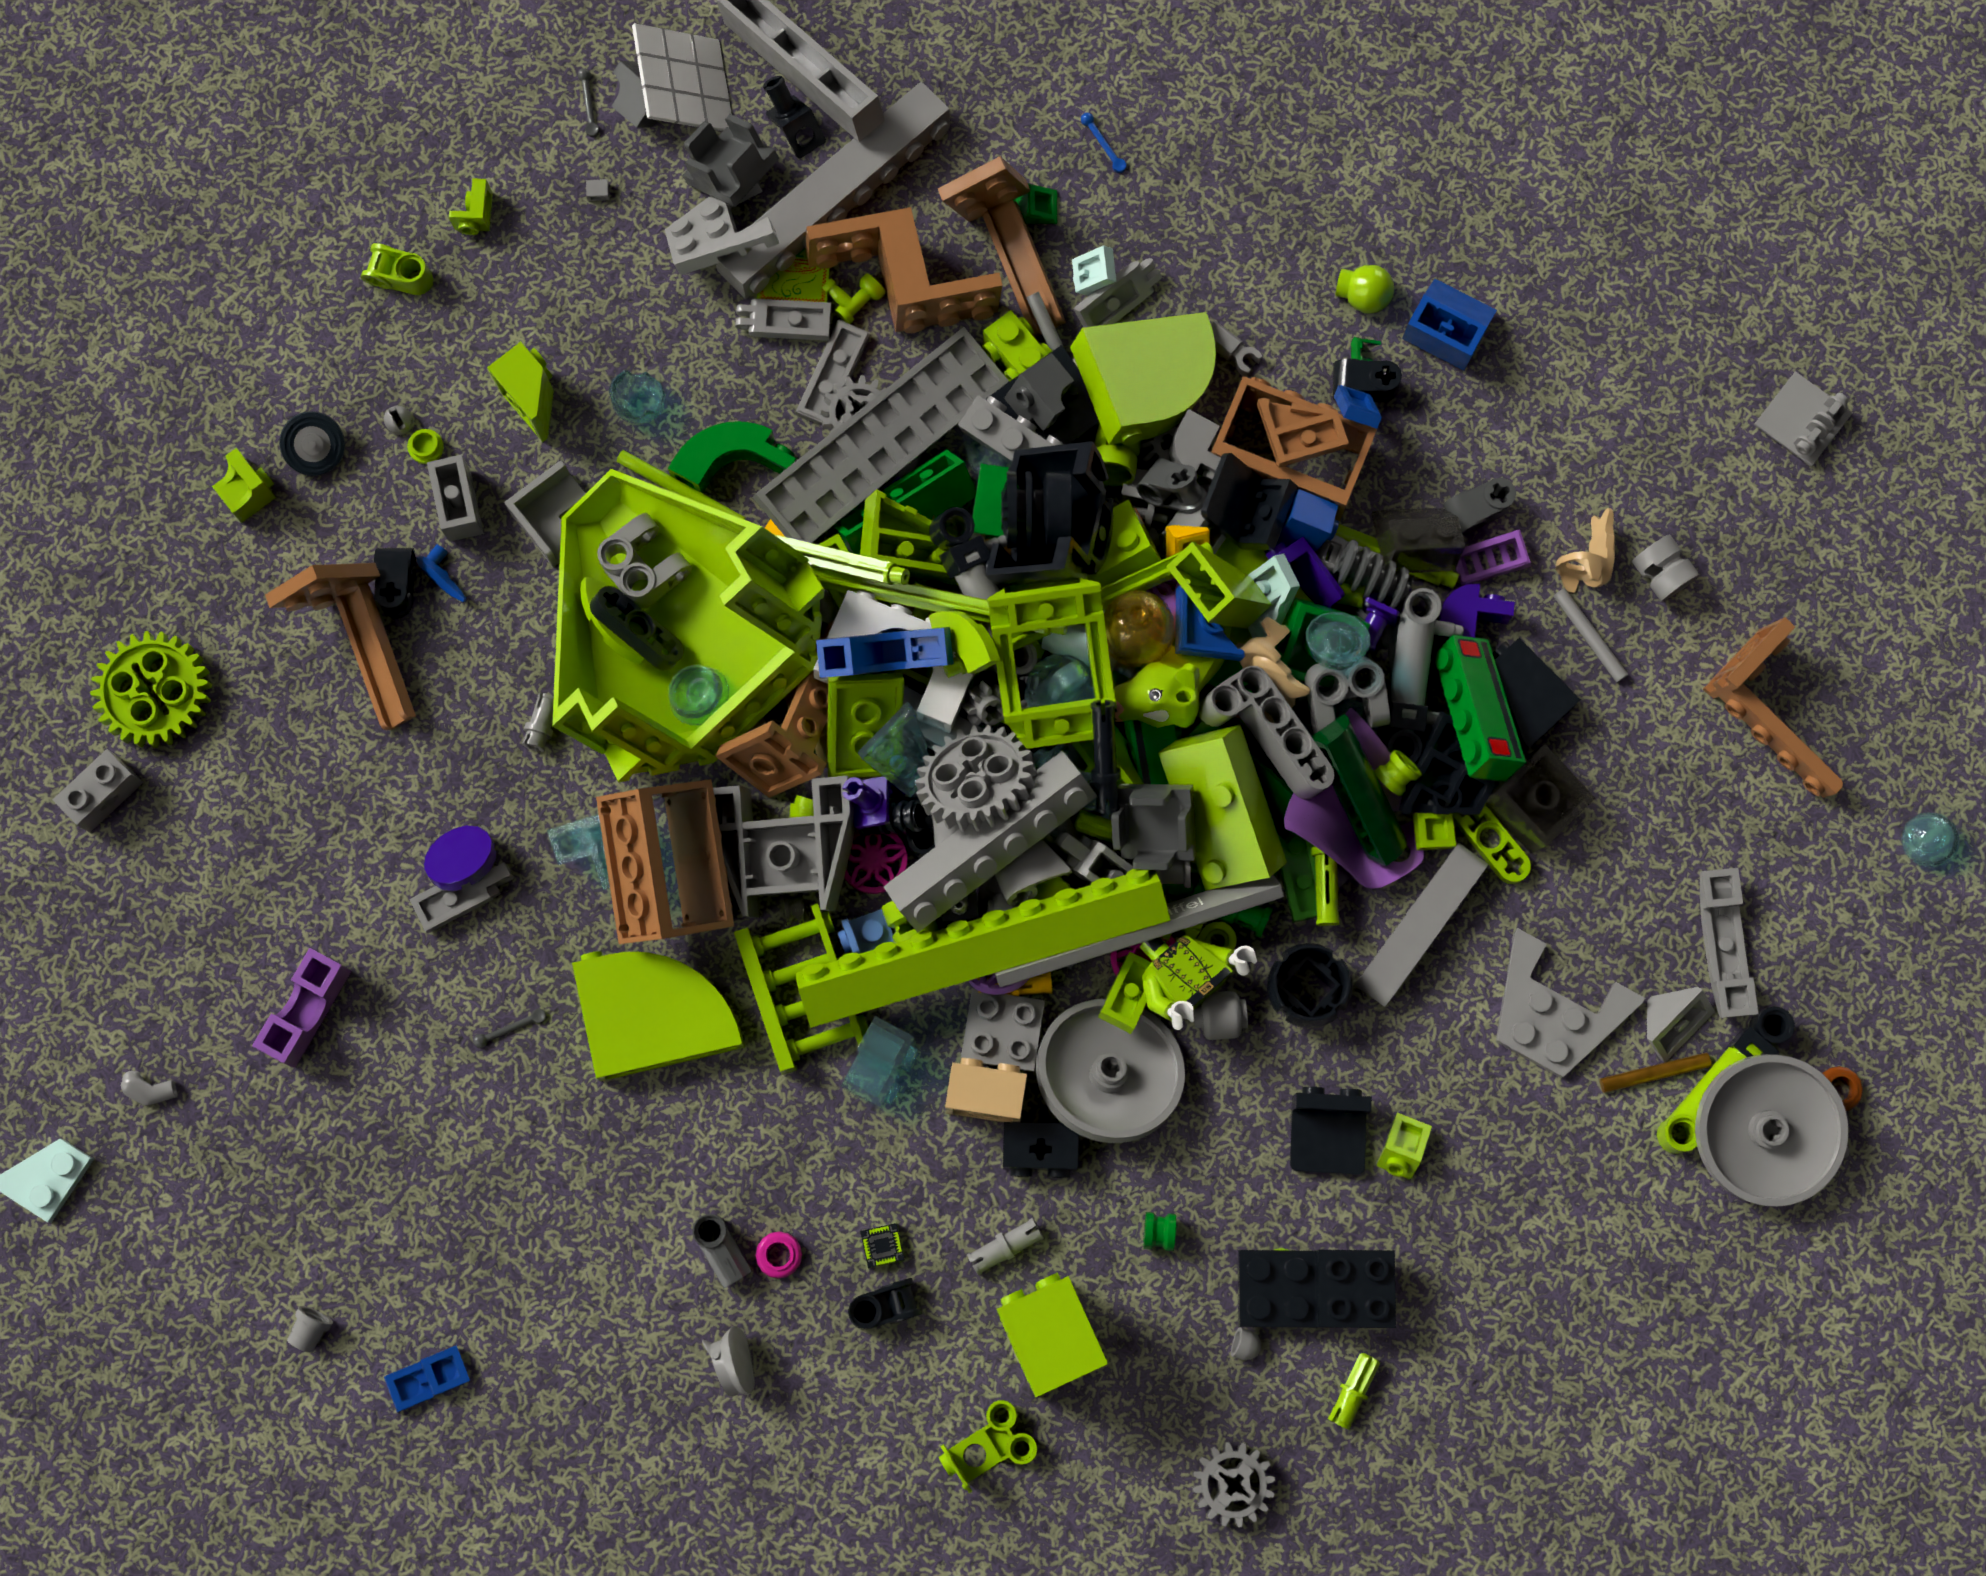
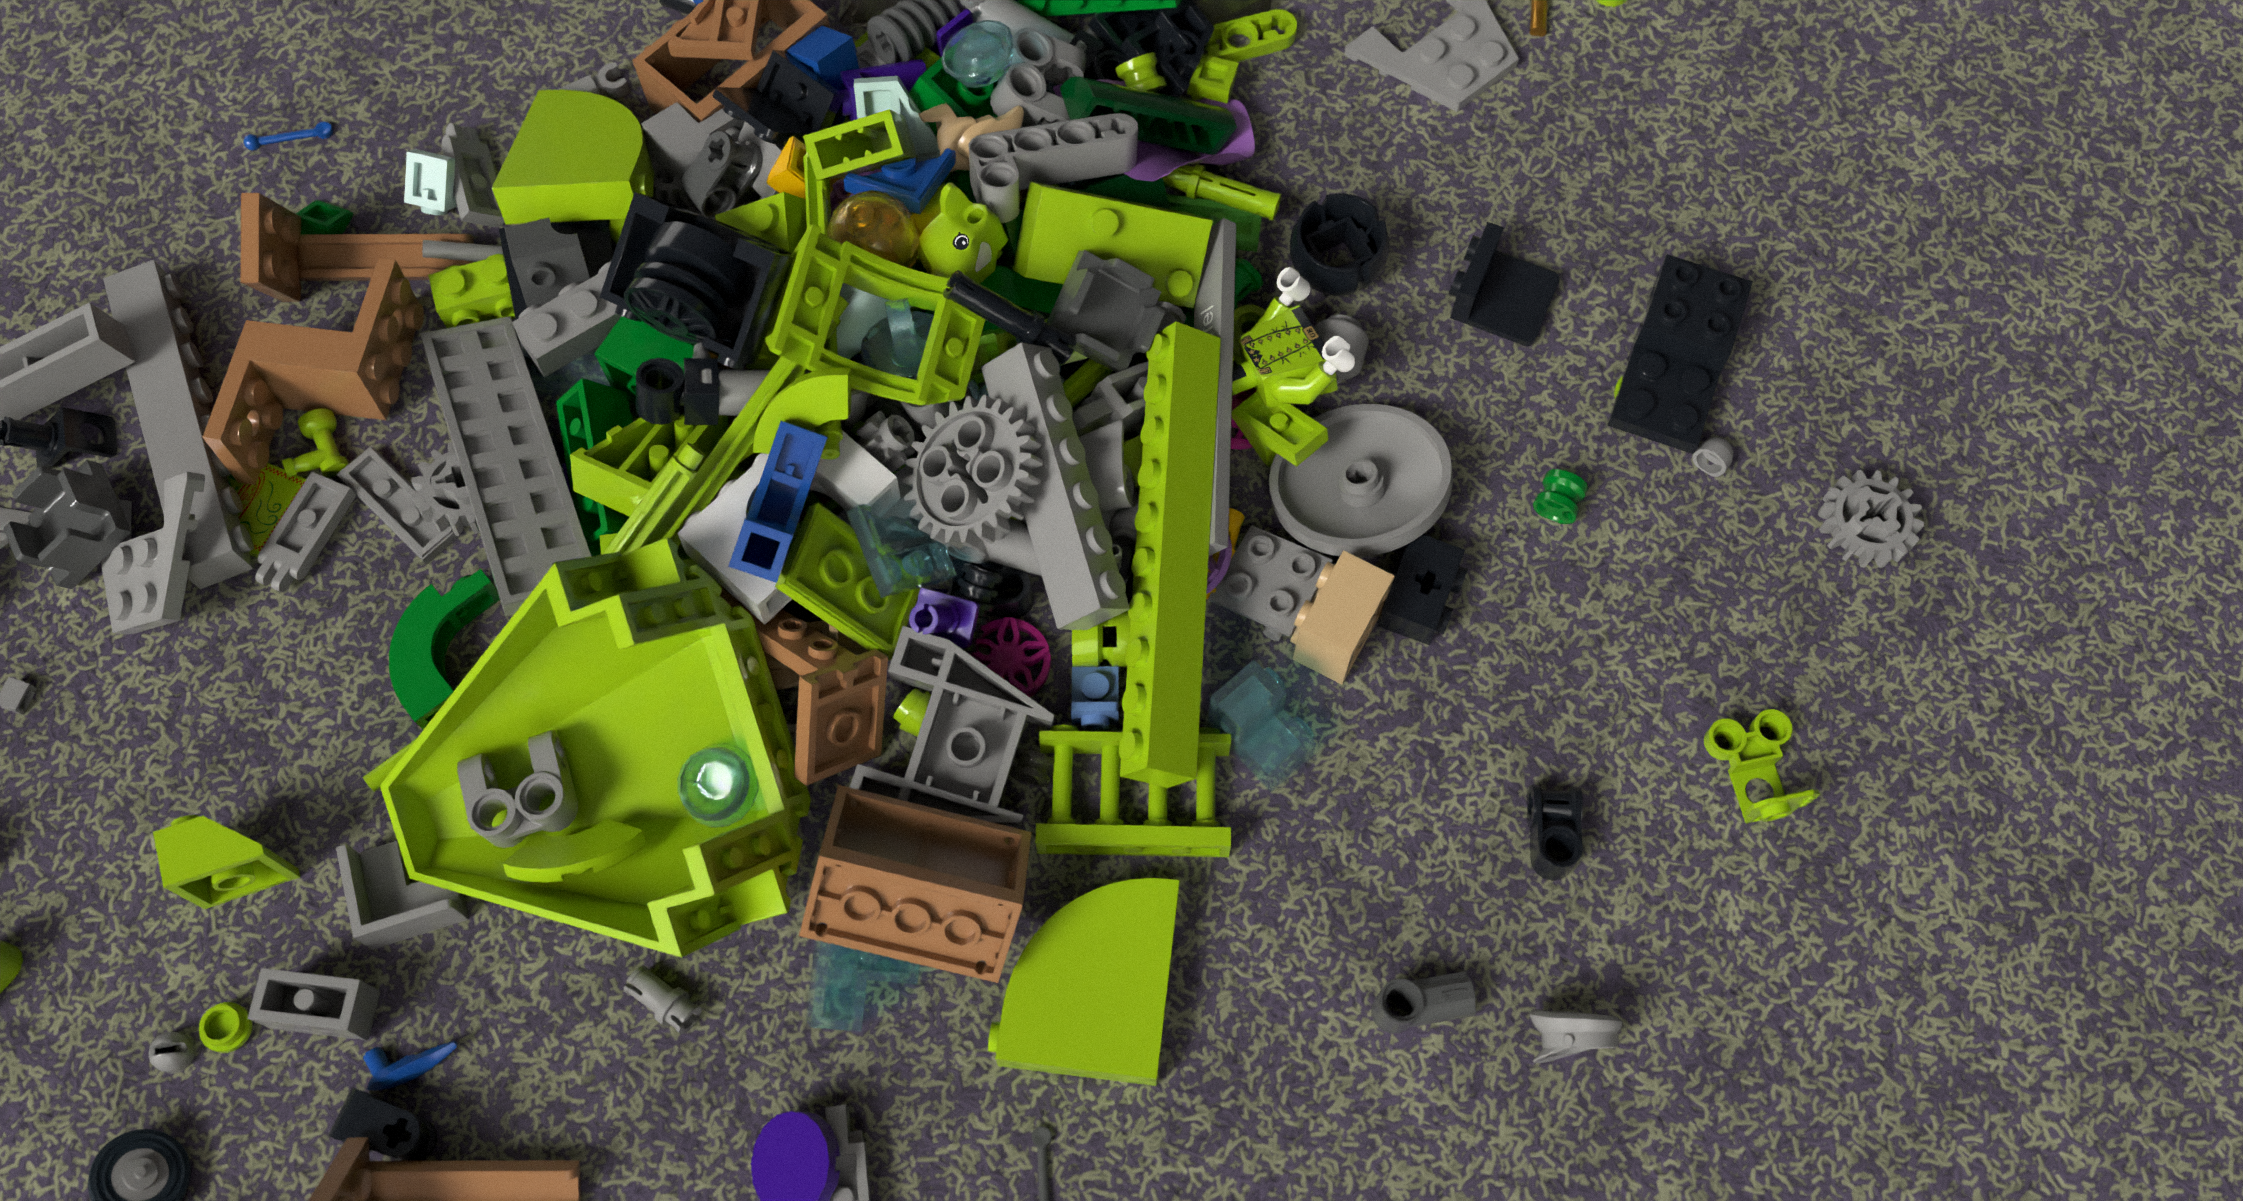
camera: 70 degrees left, 10 degrees down
(628, 388) = (291, 735): clear light blue hair -> none
(650, 651) = (574, 837): black beam -> none
(794, 1250) = (1447, 955): dark pink piece -> none
(882, 1245) = (1478, 809): tile -> none
(1005, 1246) = (1524, 668): light grey pin -> none
(1050, 1334) = (1667, 626): lime hose -> none
(1354, 1391) = (1796, 364): lime axle -> none
(1404, 1146) = (1544, 224): lime bracket -> none
(1421, 924) = (1308, 125): light grey beam -> none

